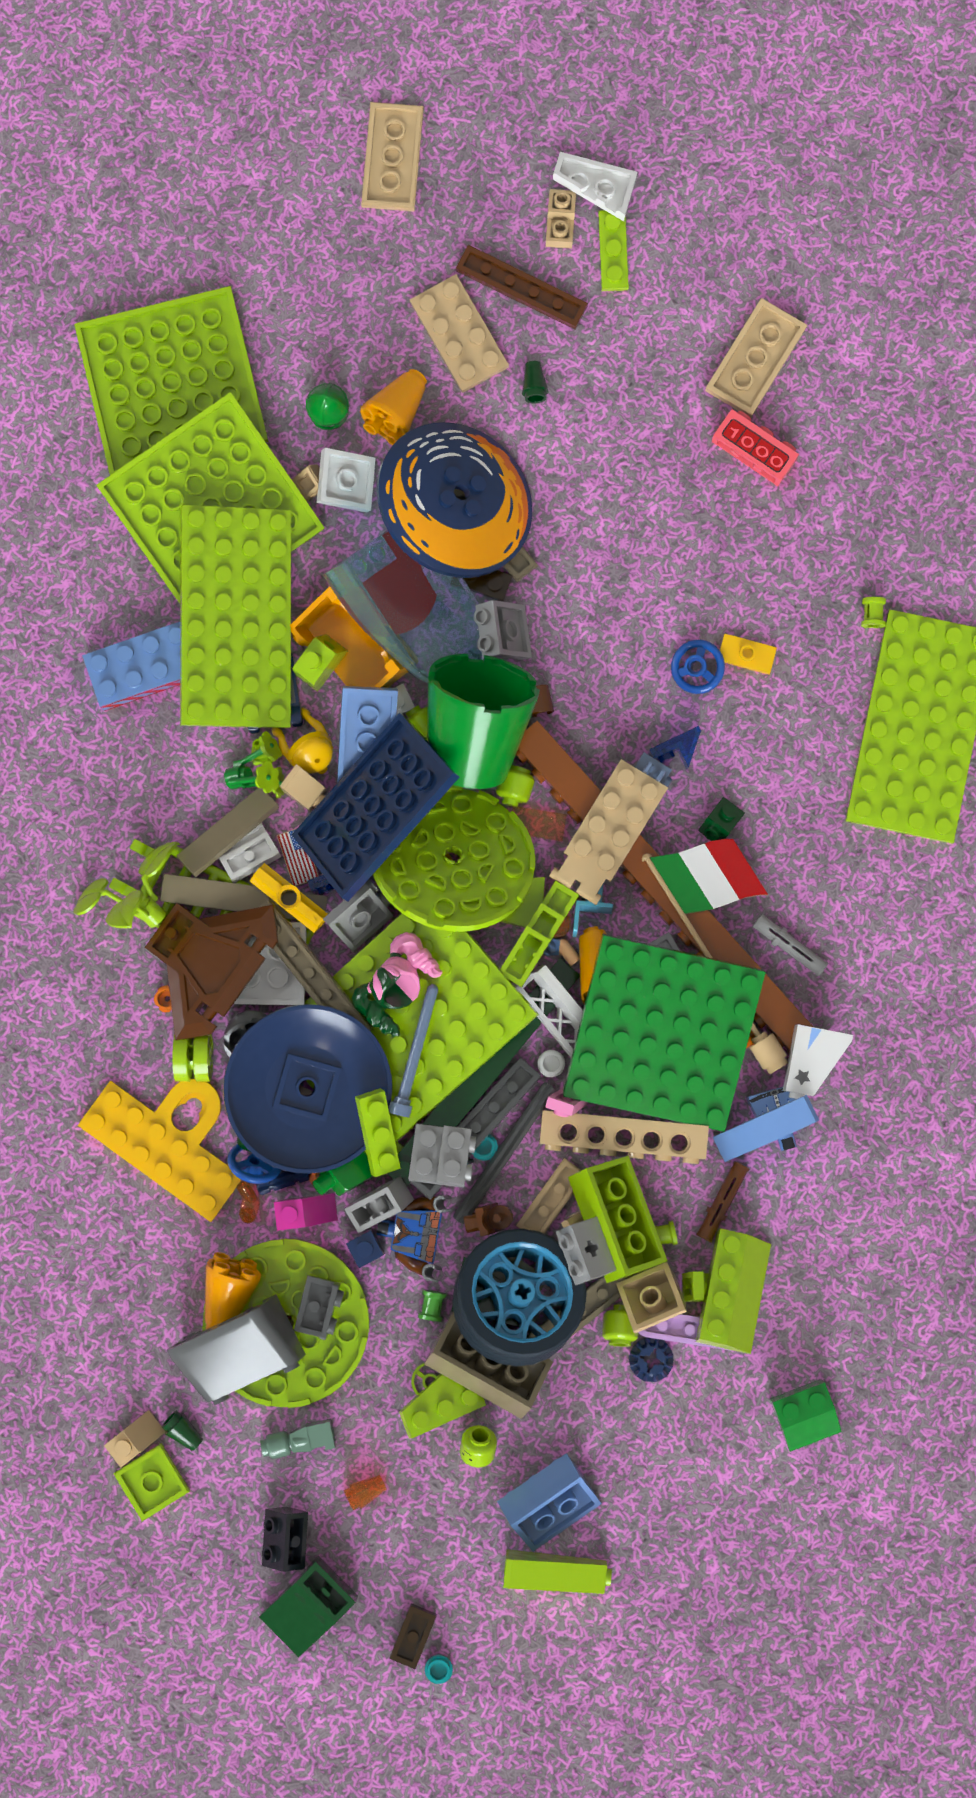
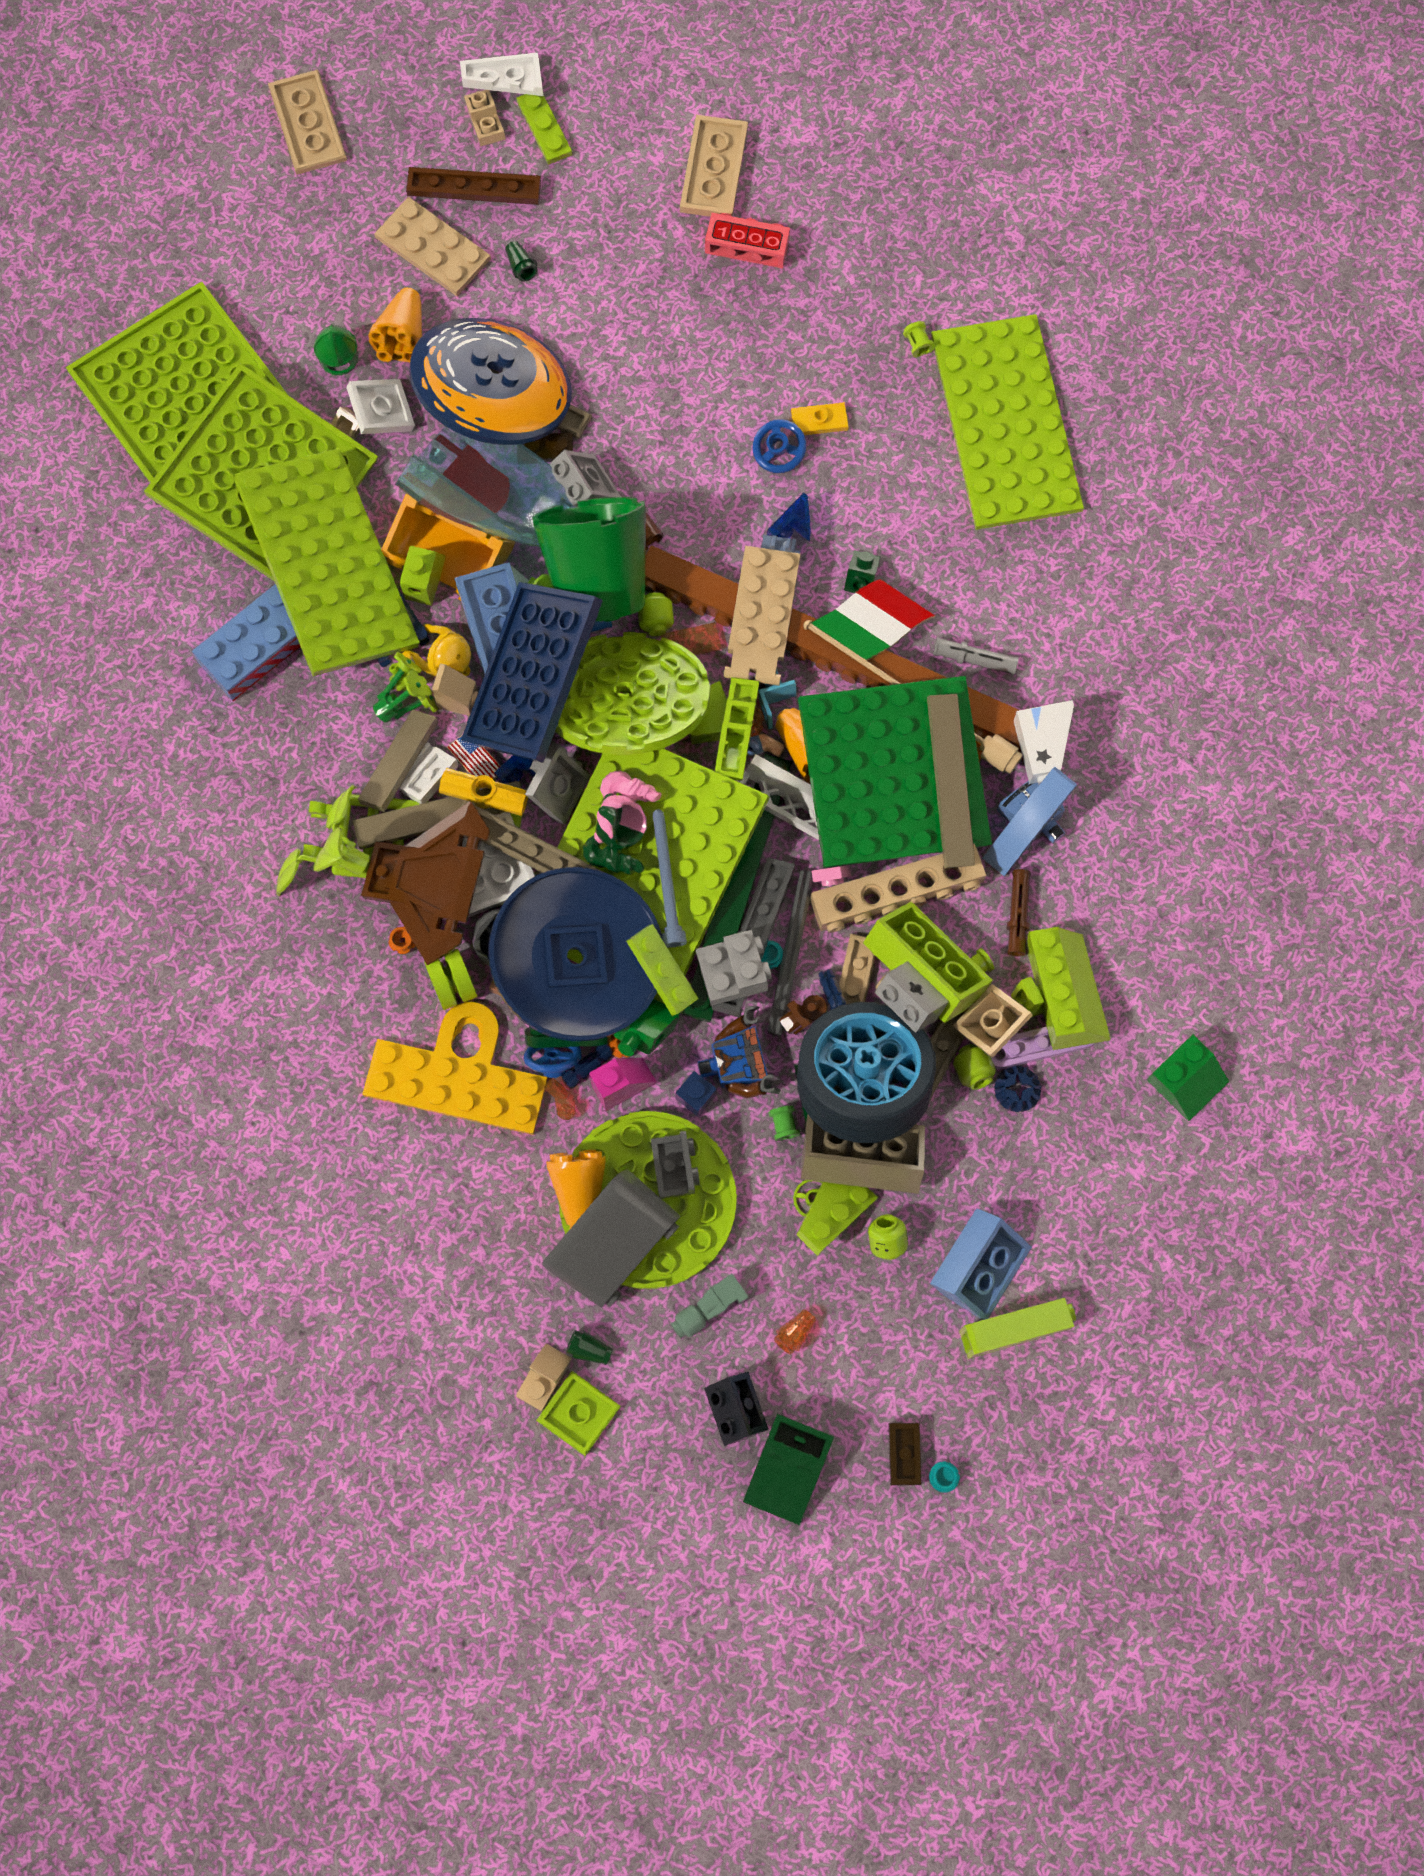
camera: 30 degrees left, 10 degrees down
(379, 1204) = (691, 1043): light grey brick -> none
(524, 1205) = (831, 988): none -> dark blue axle
(551, 1063) = (799, 852): white tile -> none
(709, 1064) = (950, 780): none -> dark tan tile

